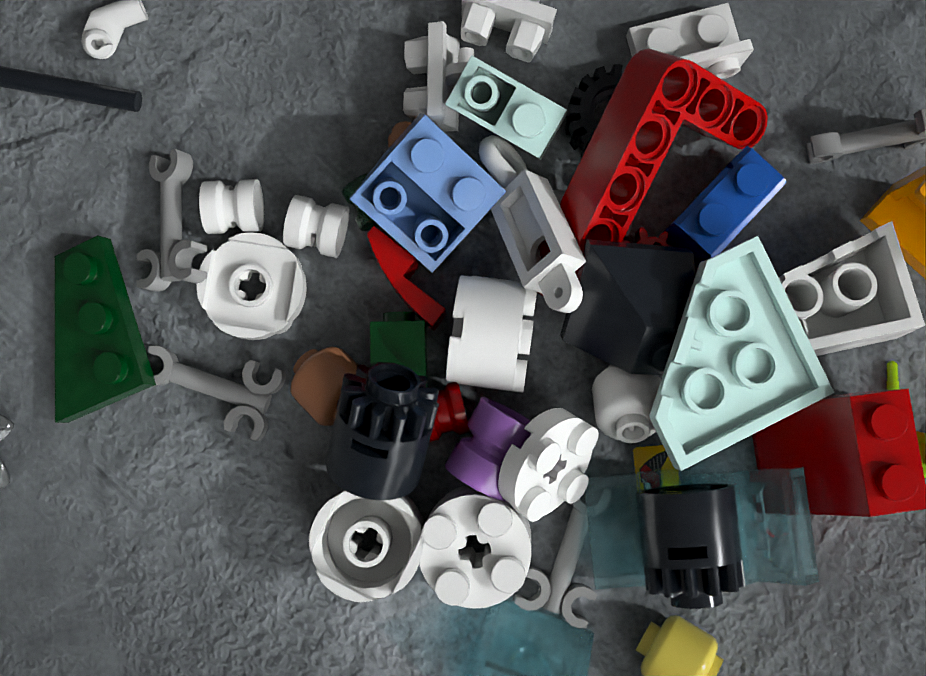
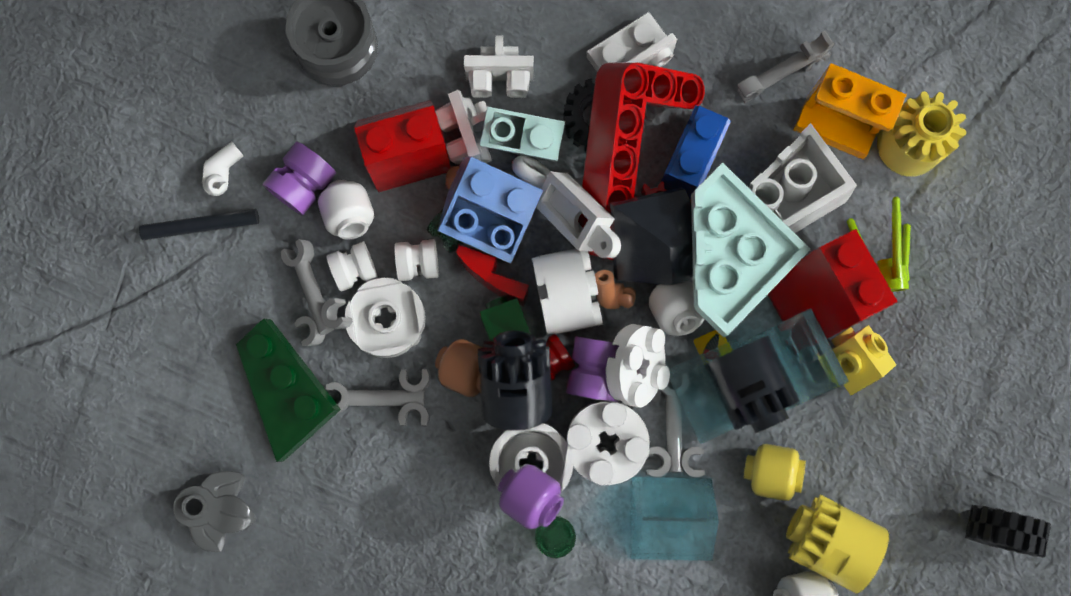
camera: 20 degrees left, 5 degrees down
(202, 70) = (299, 178): none -> medium lavender wheel
(248, 130) = (346, 209): none -> white head
(344, 71) = (402, 146): none -> red slope
(345, 592) = (530, 496): none -> medium lavender head
(362, 649) = (552, 542): none -> clear green wheel
(550, 356) = (612, 294): none -> nougat arm
(847, 554) = (862, 357): none -> light yellow brick

